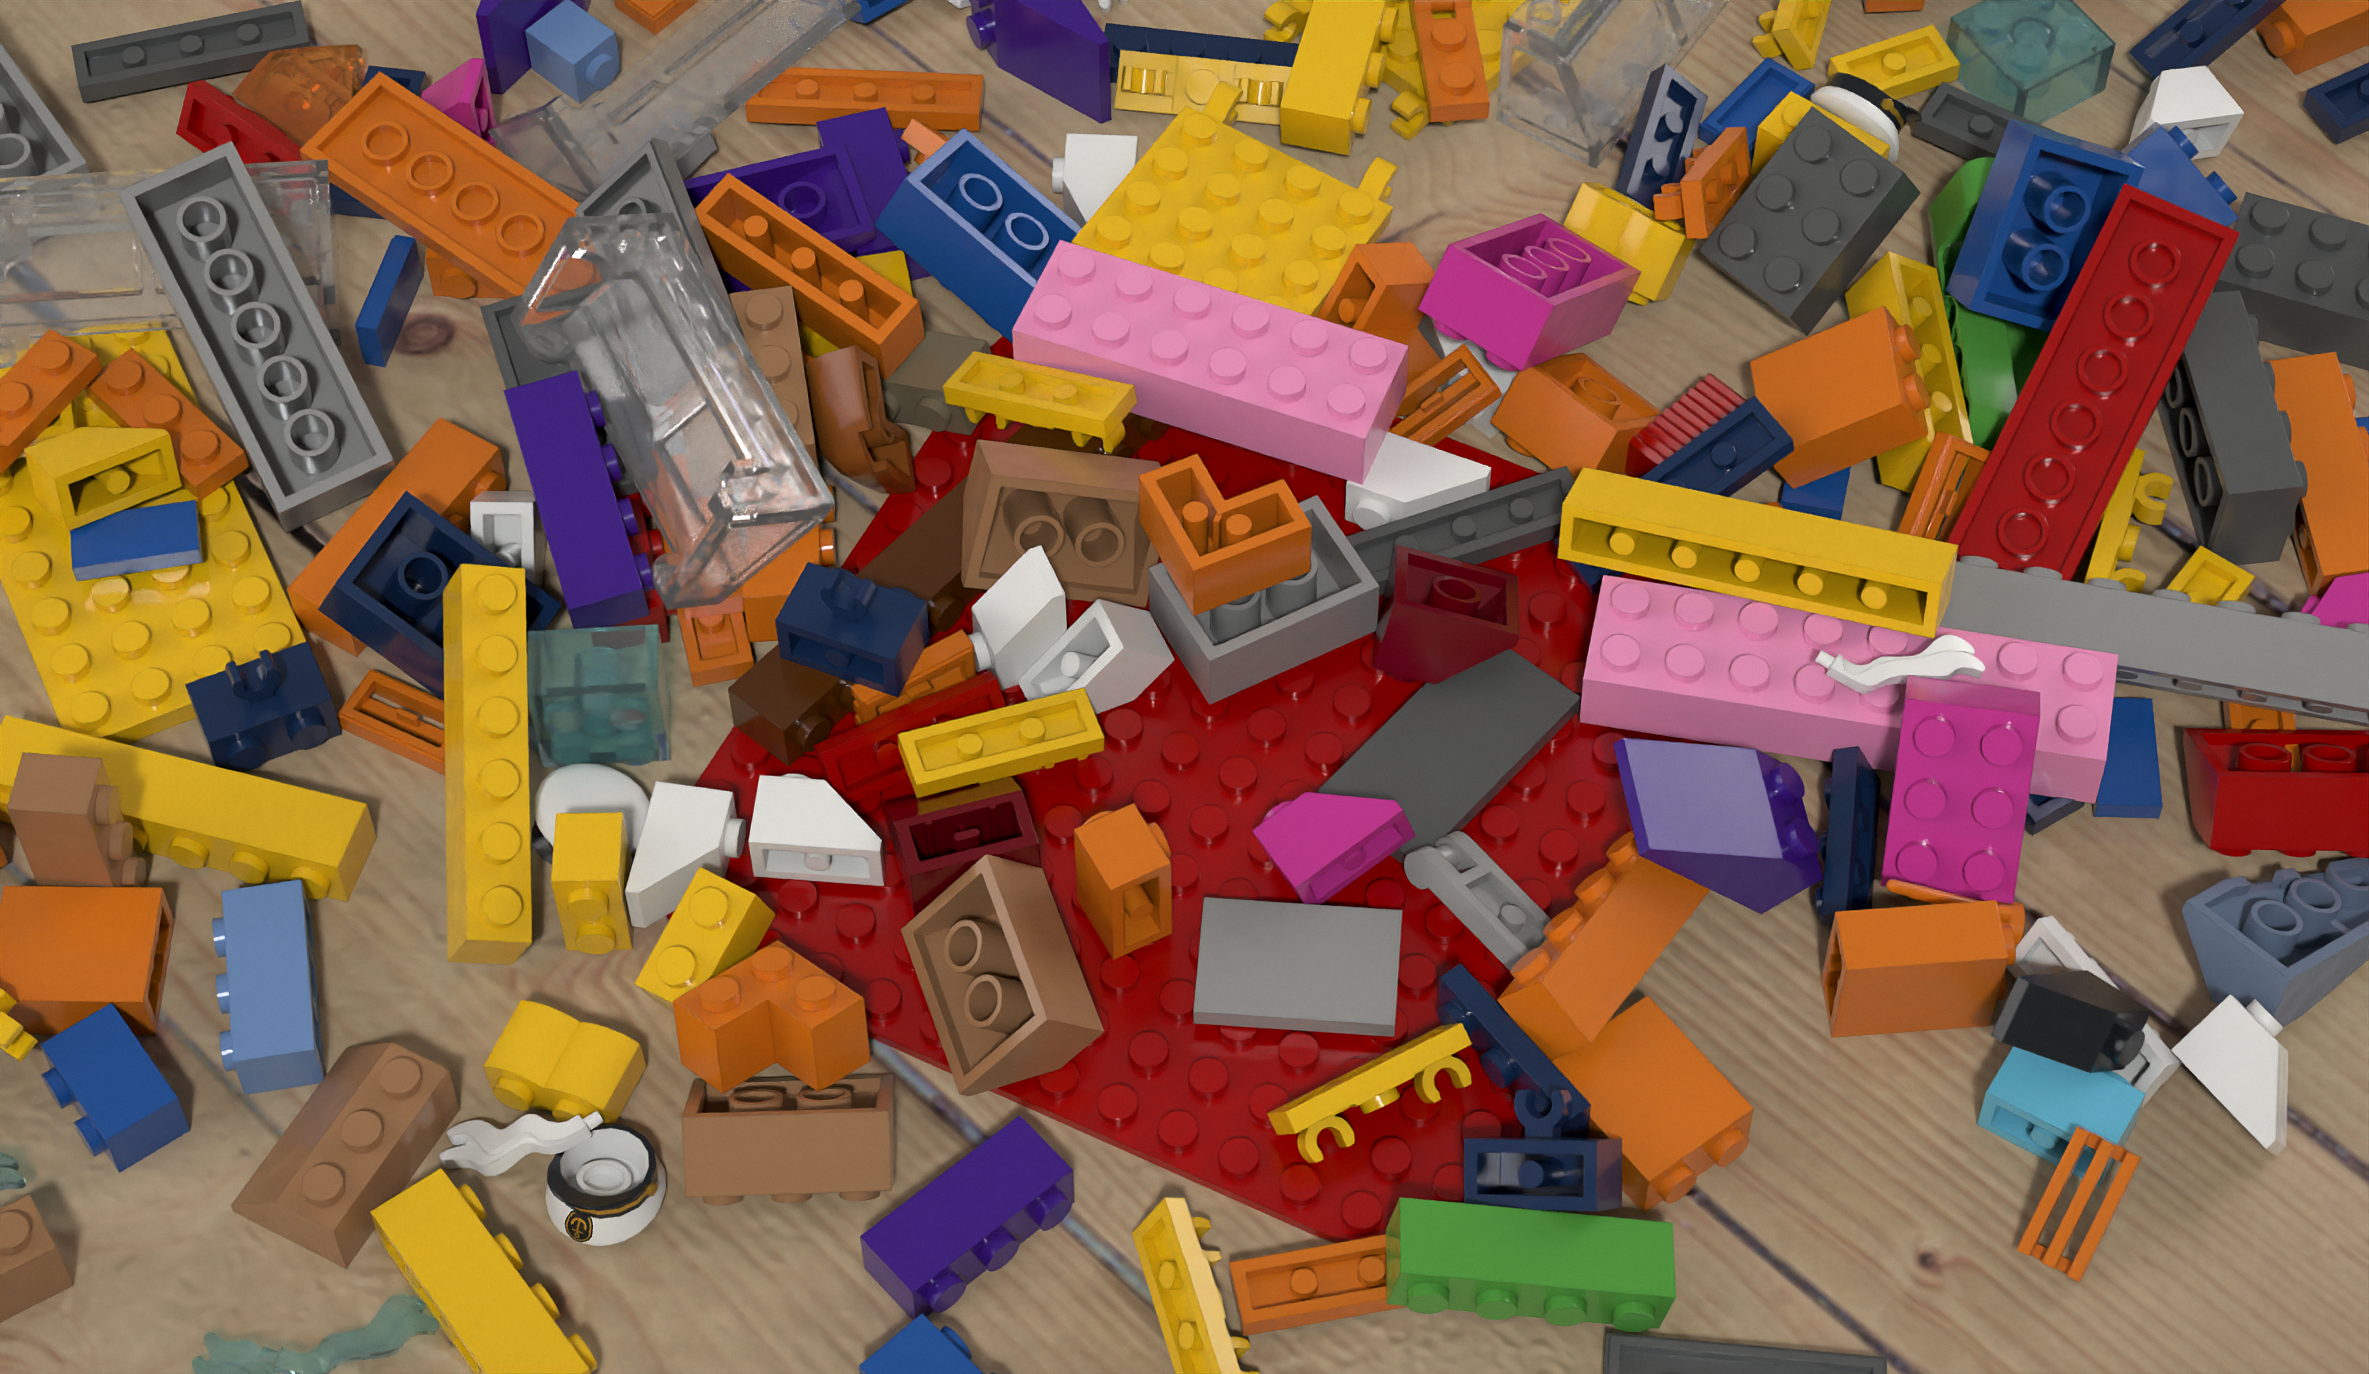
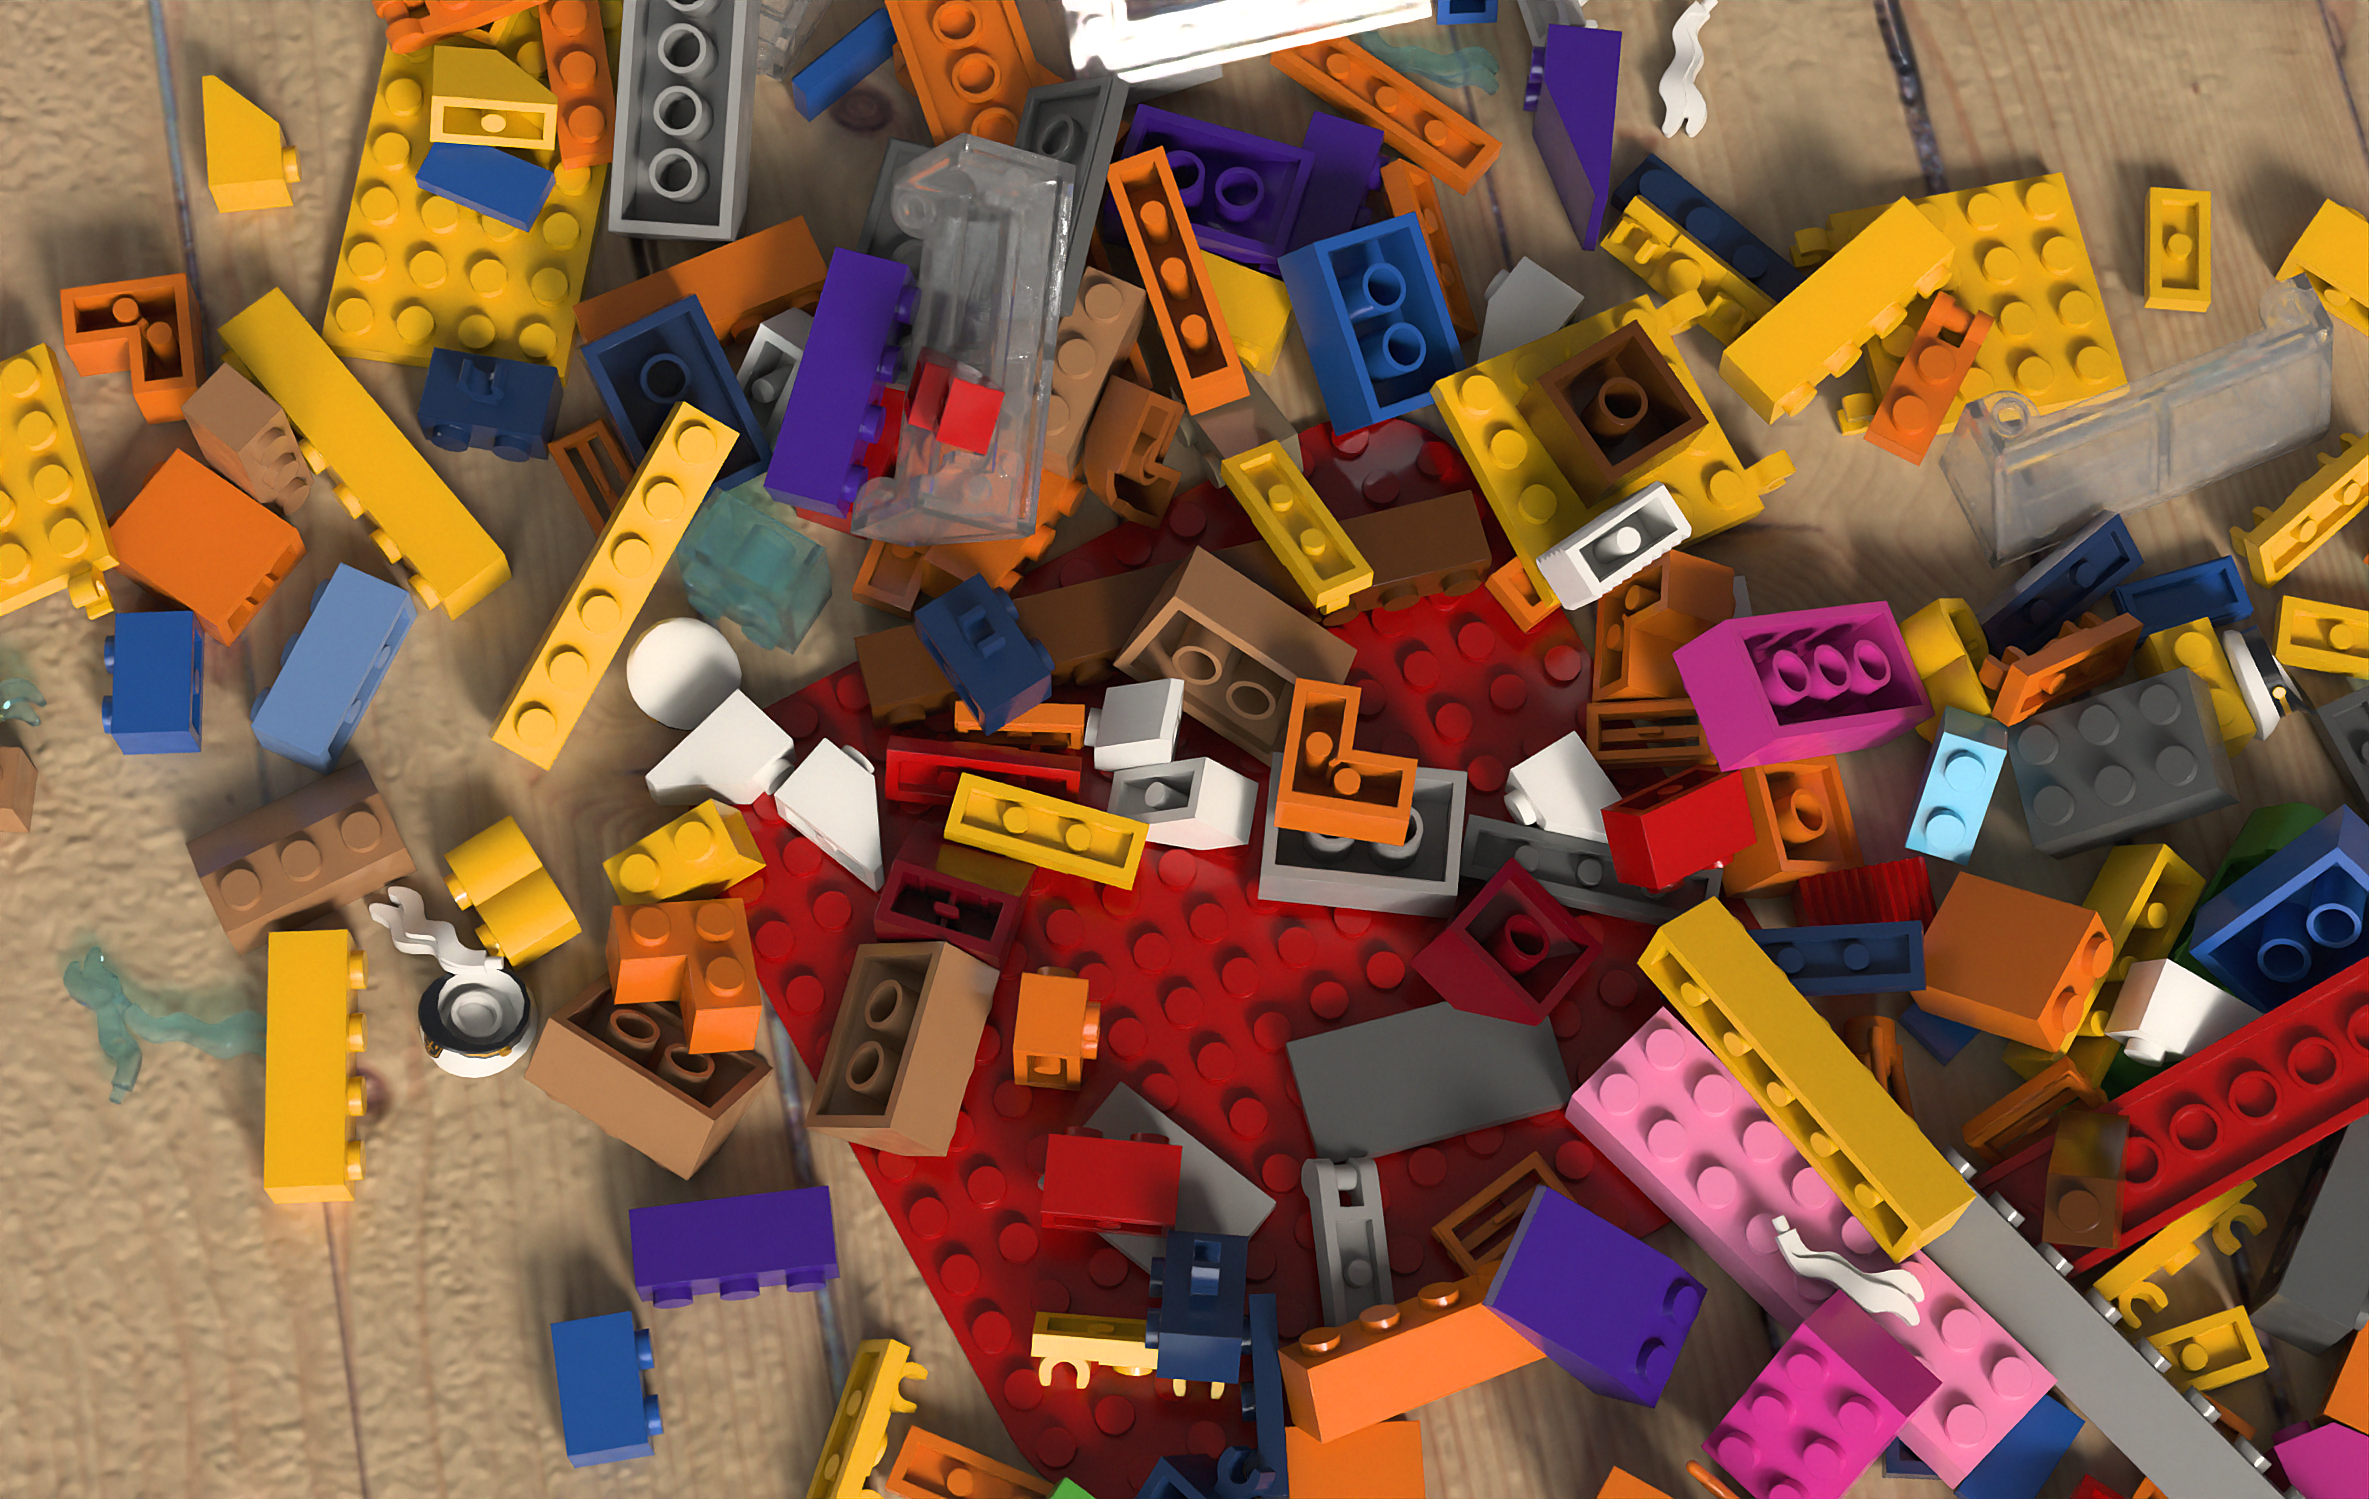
camera: 30 degrees right, 15 degrees up
(590, 881) = (629, 741): yellow brick -> none
(695, 434) = (953, 401): none -> red slope
(901, 50) = (1459, 69): none -> clear light blue hair
(1217, 360) = (1468, 584): bright pink brick -> none
(1234, 178) = (1611, 414): none -> reddish brown brick
(1262, 966) = (1111, 1183): none -> red brick
(1314, 257) = (1614, 546): none -> white brick
(1330, 840) = (1247, 1102): dark pink slope -> none
(1410, 1000) = (1201, 1307): none -> dark blue brick
(1515, 442) = (1679, 828): none -> red brick
(1578, 860) = (1460, 1251): none -> orange tile
(1698, 307) = (1956, 785): none -> medium azure brick
(1851, 837) = (1706, 1389): dark blue plate -> none
(1988, 357) = (2172, 1013): none -> white slope
(2034, 502) = (2087, 1180): none -> reddish brown slope

